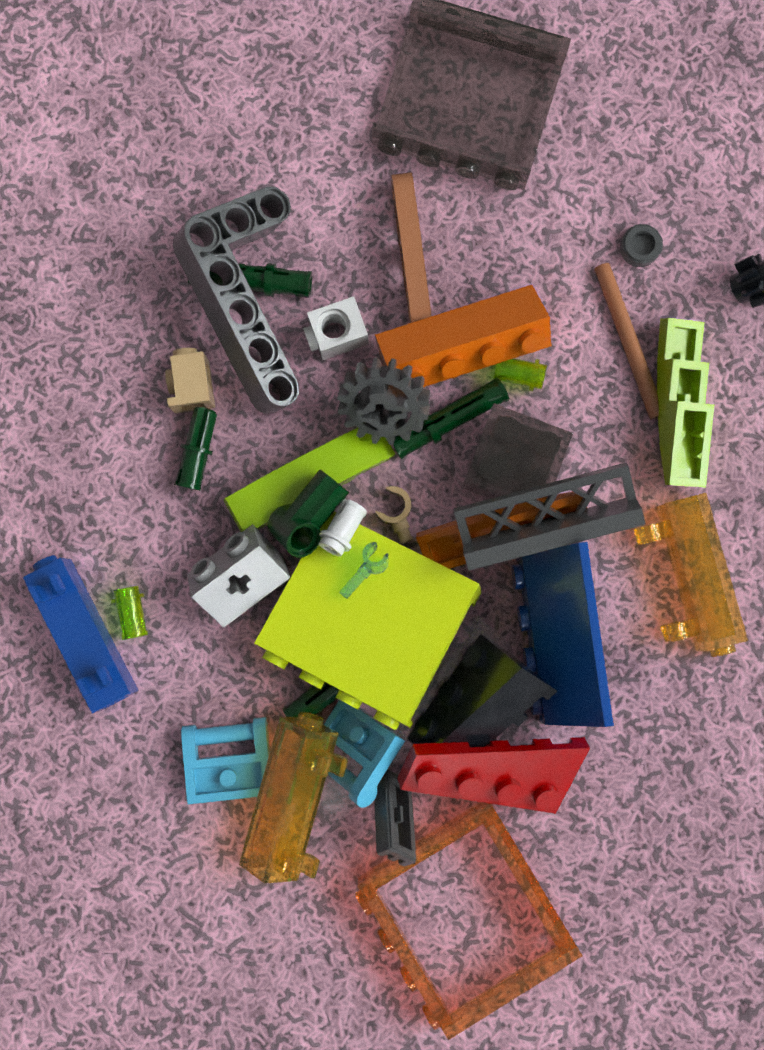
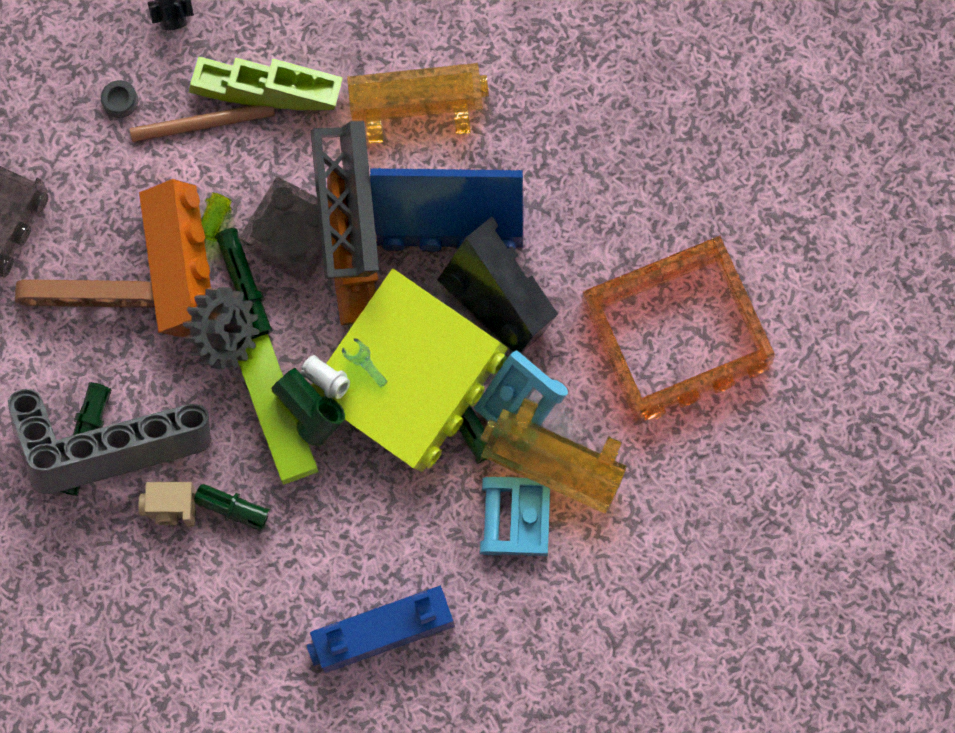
camera: 75 degrees left, 10 degrees down
(130, 612) = (369, 585): clear neon green pin -> none
(237, 575) = (352, 478): brick -> none
(342, 312) = (140, 353): white brick -> none
(394, 821) = (586, 371): dark grey tile -> none
(399, 523) = (329, 339): tan piece -> none
(496, 774) = (557, 279): red wing -> none

